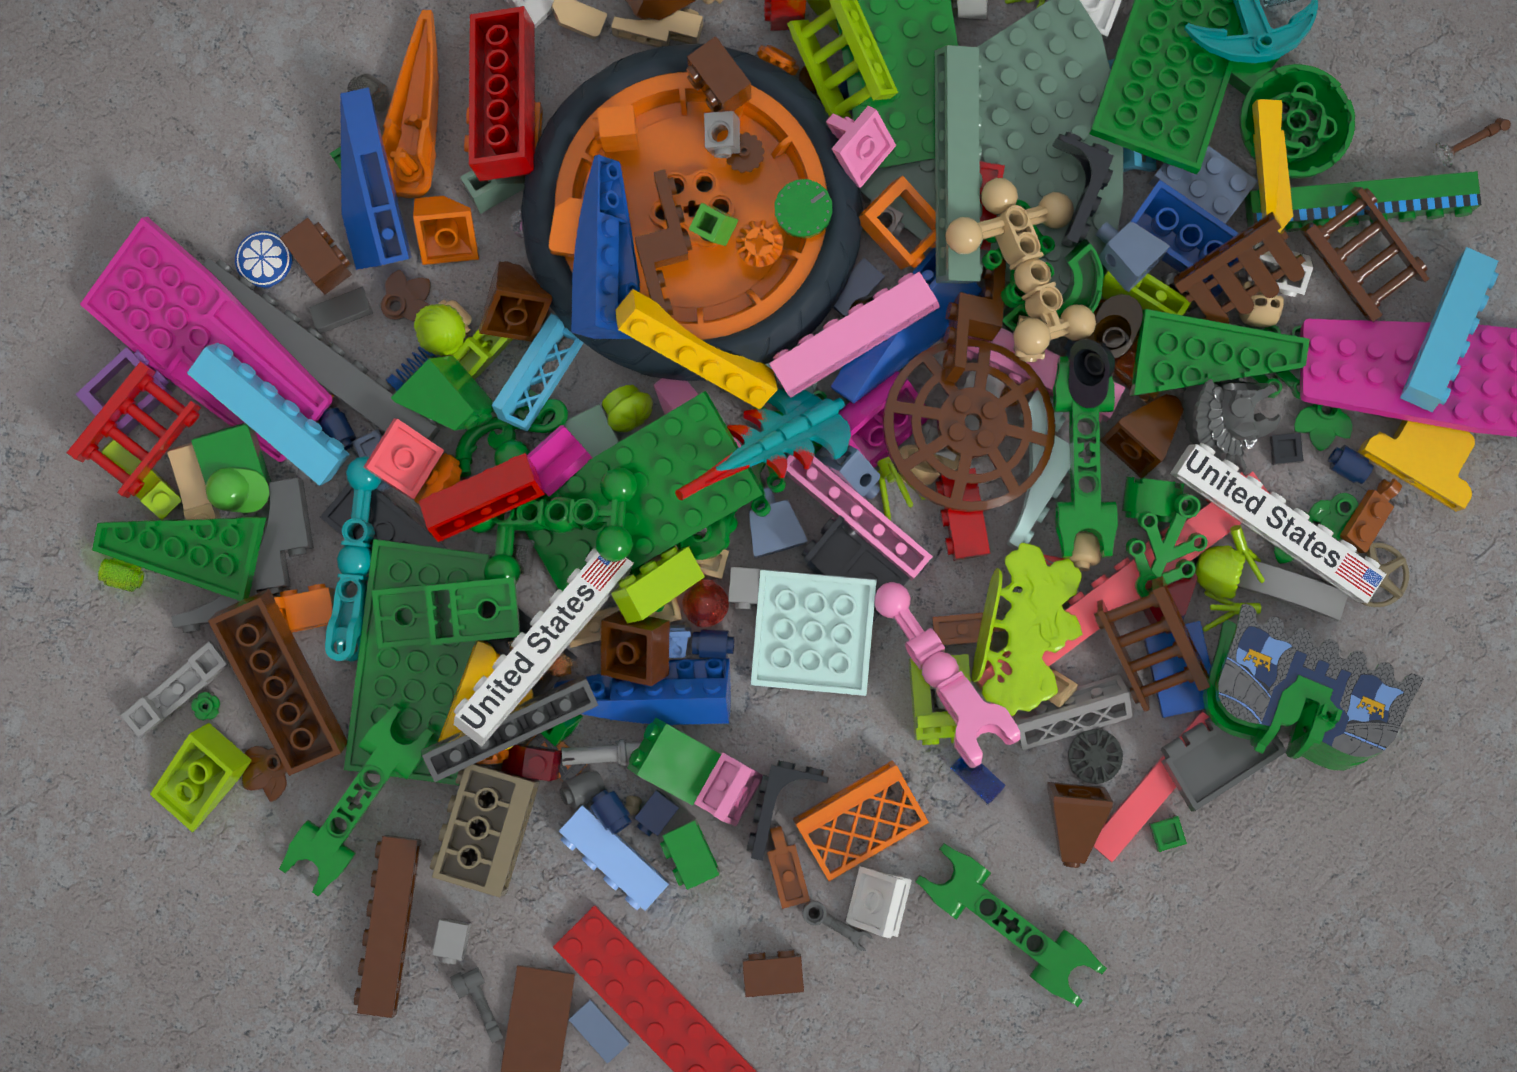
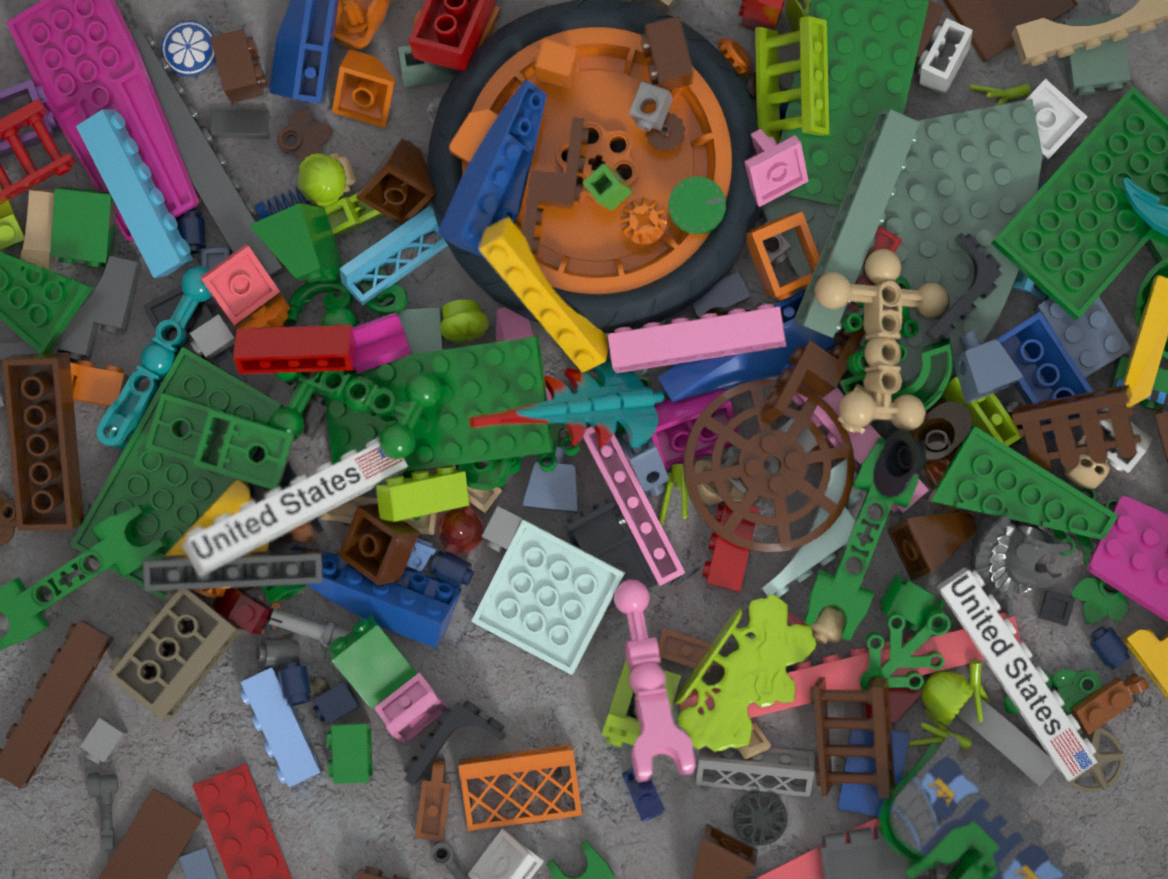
camera: 25 degrees right, 0 degrees up
(237, 490) = (78, 251): bright green cap -> none
(398, 519) = (212, 337): none -> light grey brick

